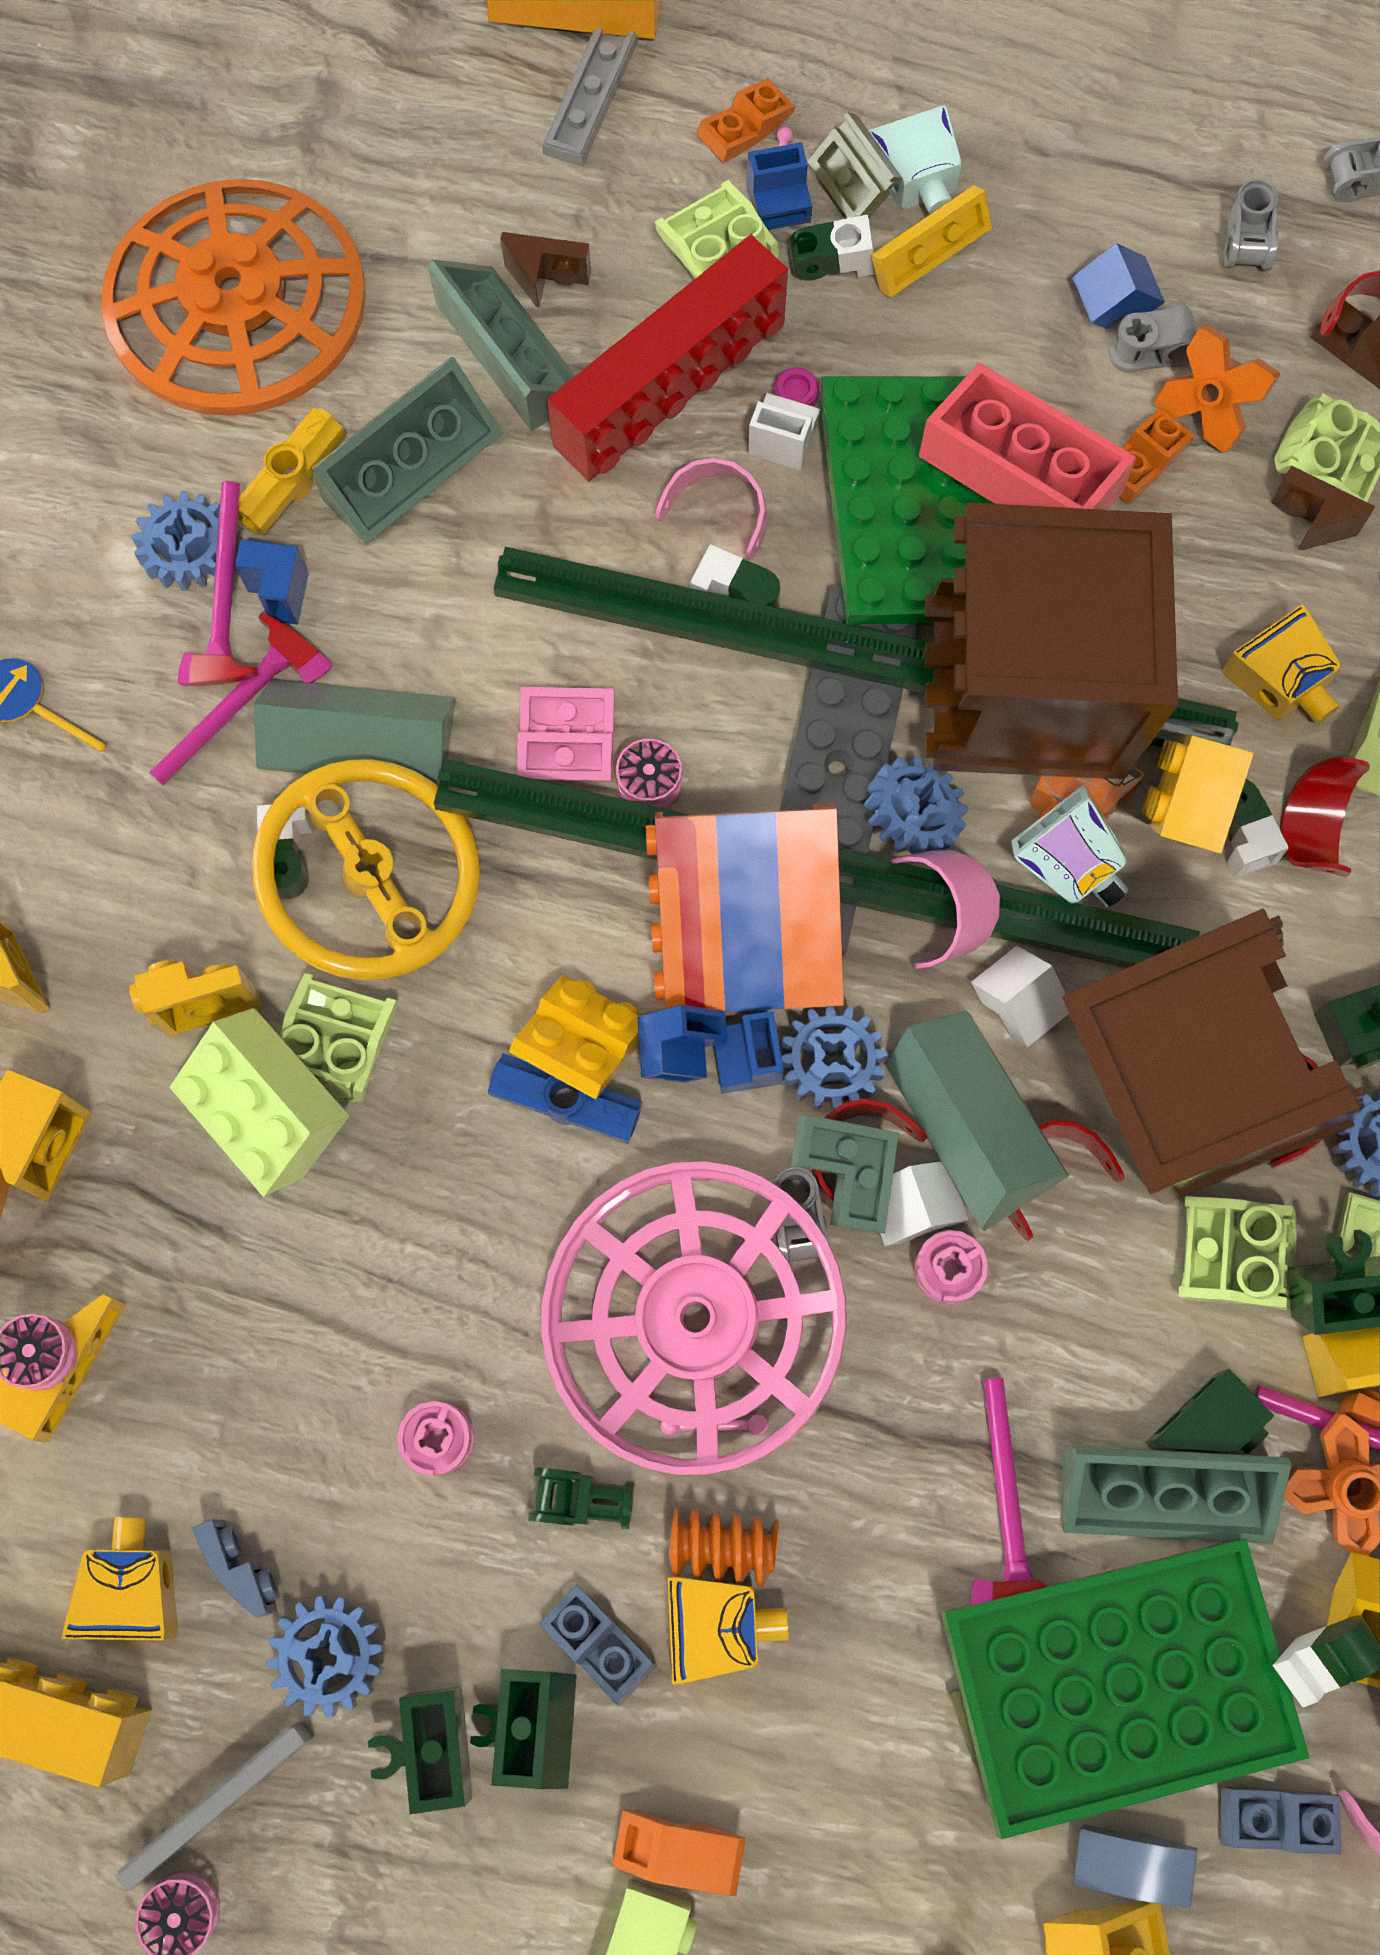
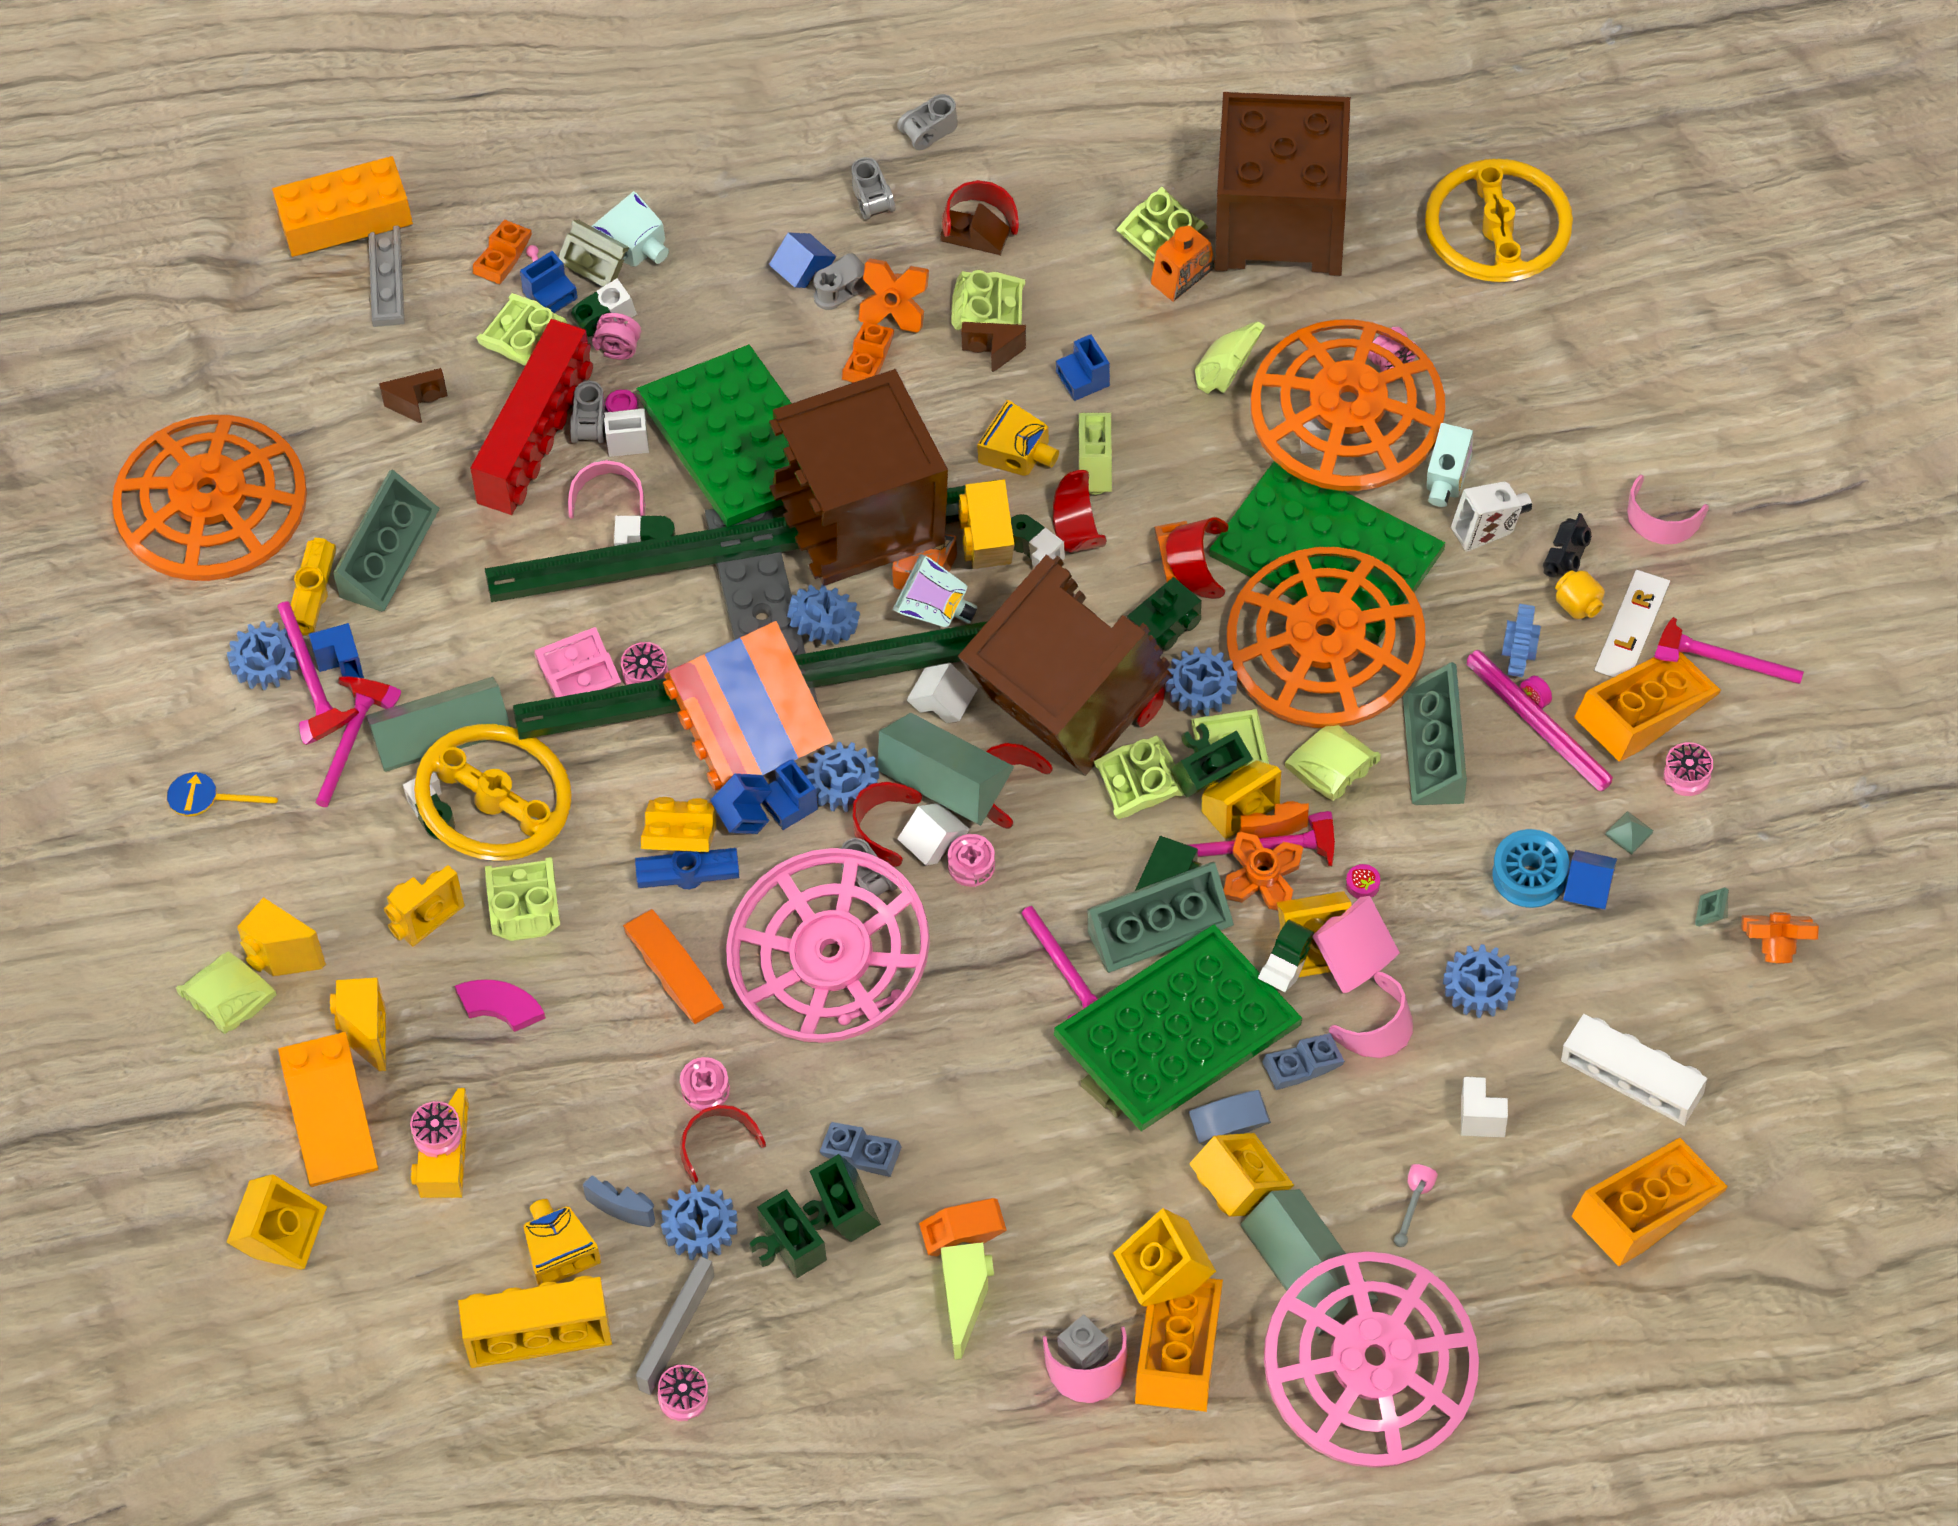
camera: 25 degrees left, 15 degrees down
(209, 1163) = (500, 1001): none -> dark pink tile
(258, 1101) = (497, 943): yellowish green brick -> none
(418, 1491) = (718, 1110): none -> red piece
(477, 1241) = (673, 966): none -> orange slope
(500, 336) = (410, 452): sand green slope -> none
(576, 1499) = (808, 1077): dark green connector -> none
(717, 1628) = (926, 1105): yellow torso -> none
(723, 1547) = (908, 1060): orange piece -> none
(742, 388) = (588, 418): none -> light grey piece
(831, 293) = (616, 337): none -> bright pink wheel
(863, 1165) = (885, 814): sand green plate -> none
(932, 241) = (666, 278): yellow plate -> none
(974, 896) = (889, 651): bright pink piece -> none
(1021, 448) = (775, 374): coral brick -> none

